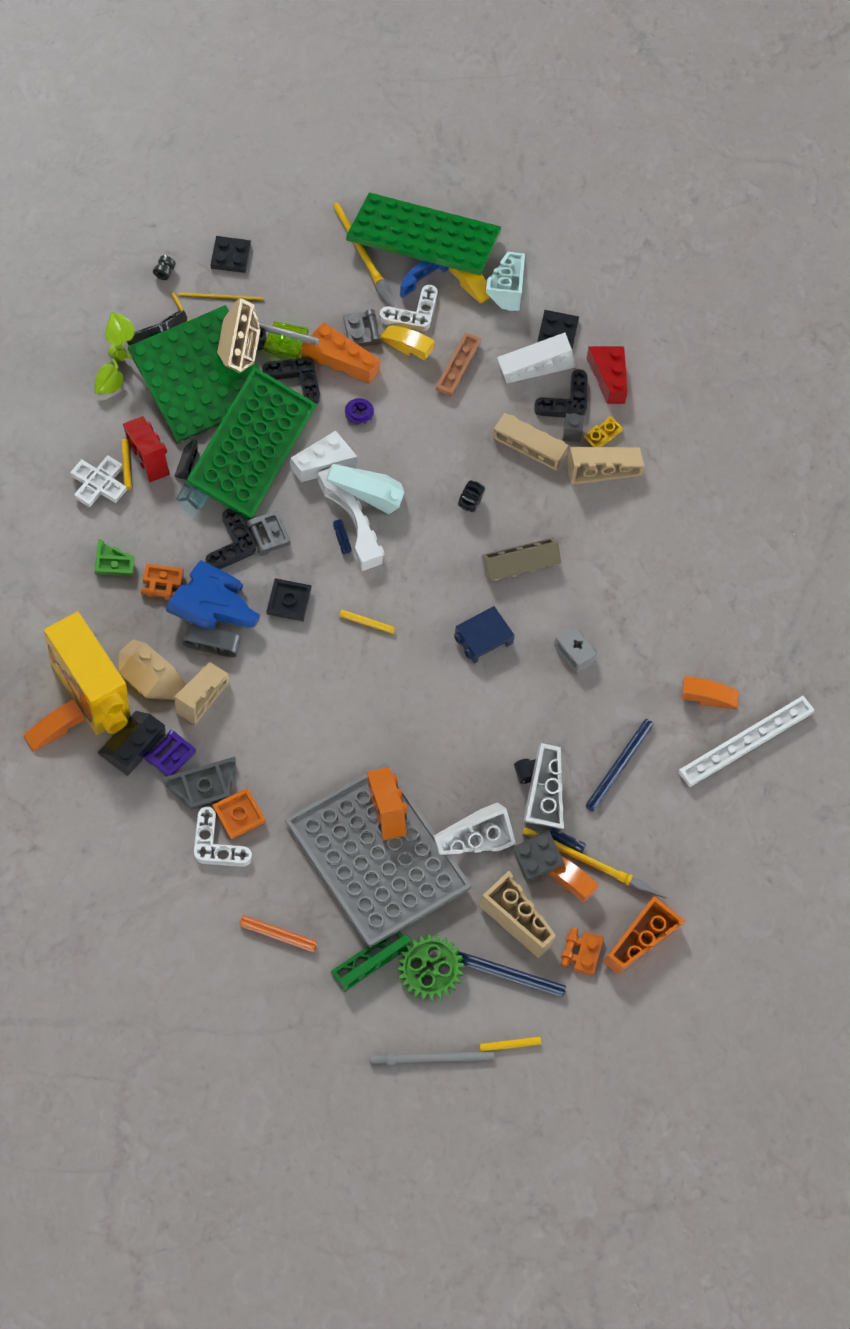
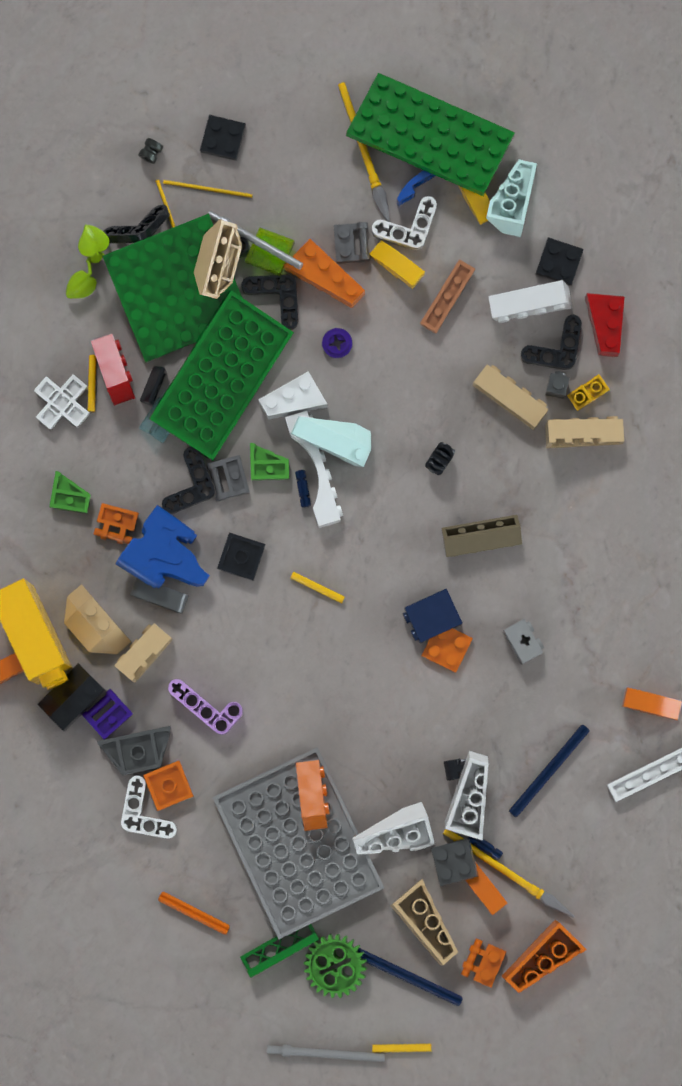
camera: 15 degrees right, 20 degrees up
(266, 734) = (202, 704): none -> lavender beam
(305, 518) = (267, 464): none -> bright green wing
(502, 664) = (447, 649): none -> orange plate

